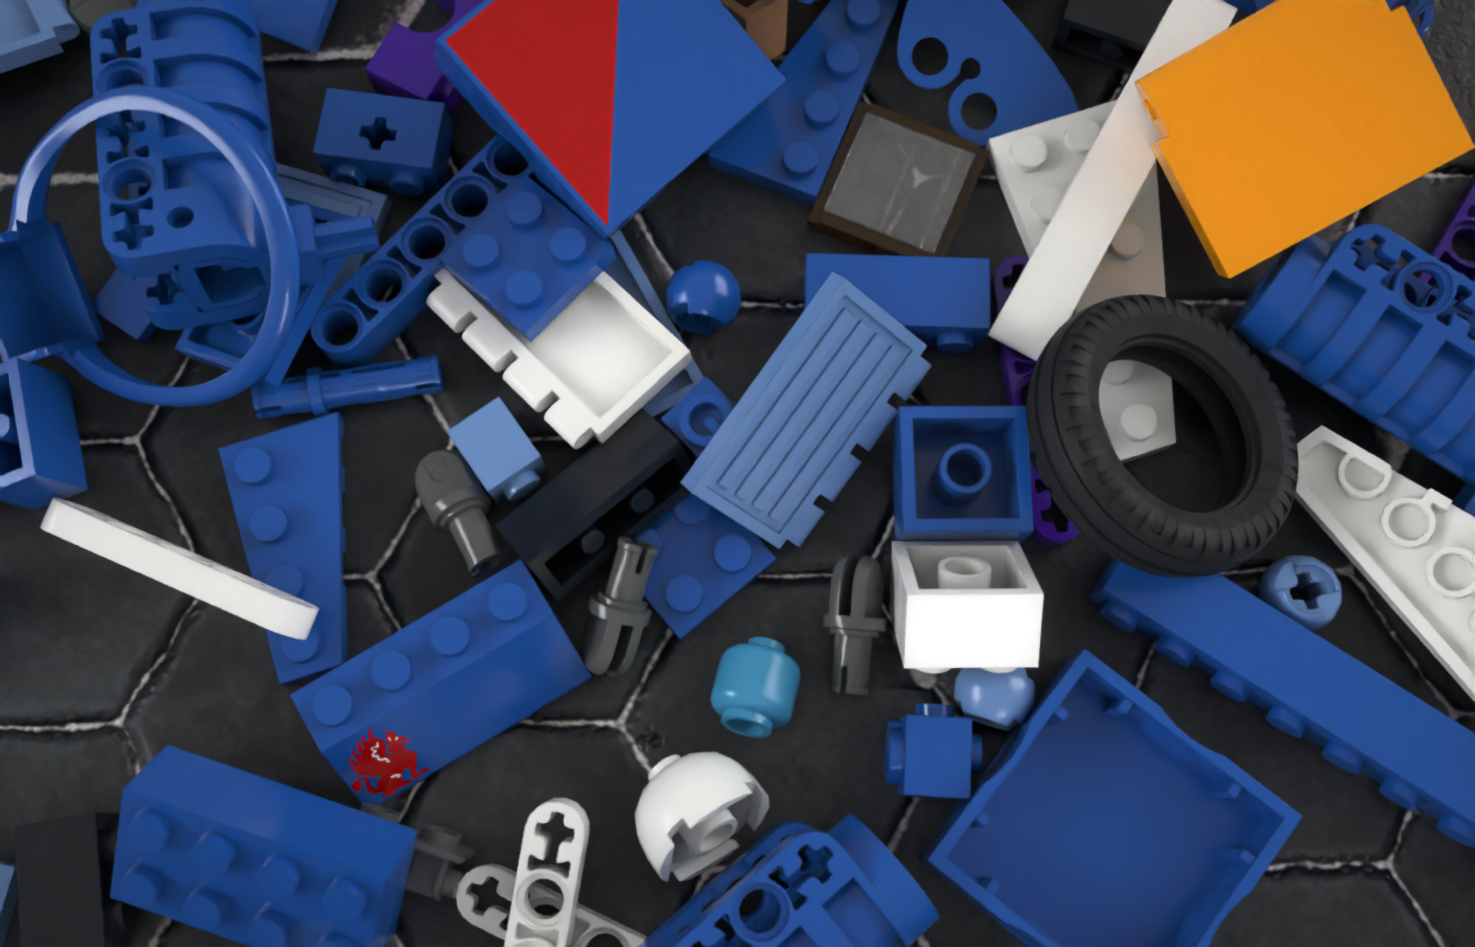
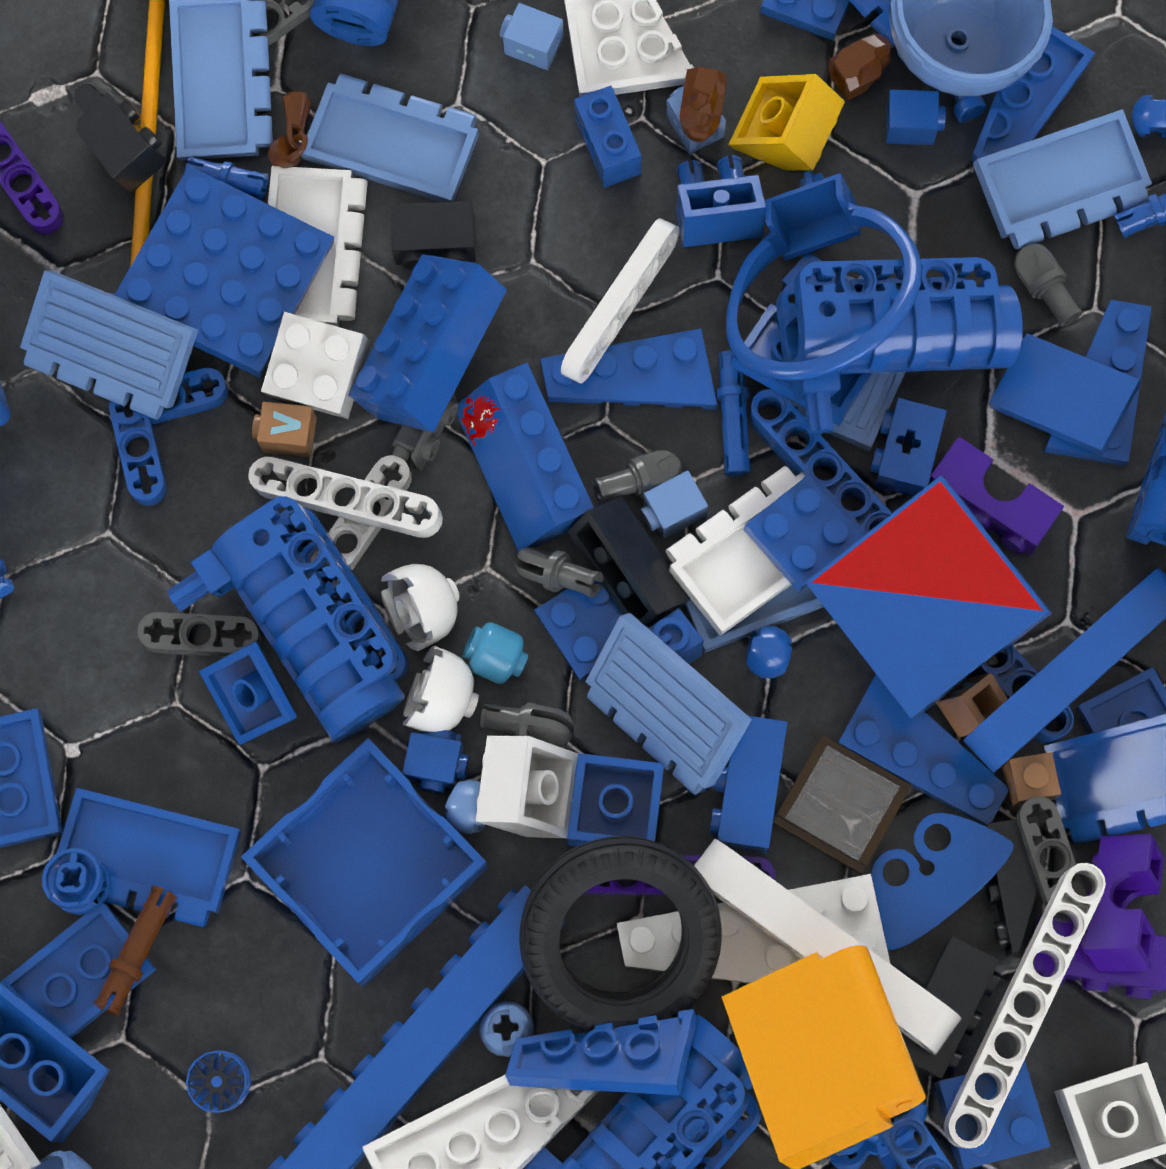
camera: 105 degrees right, 0 degrees up
(833, 762) = (440, 693): none -> white cylinder
(1341, 414) = (629, 1059): none -> blue wing

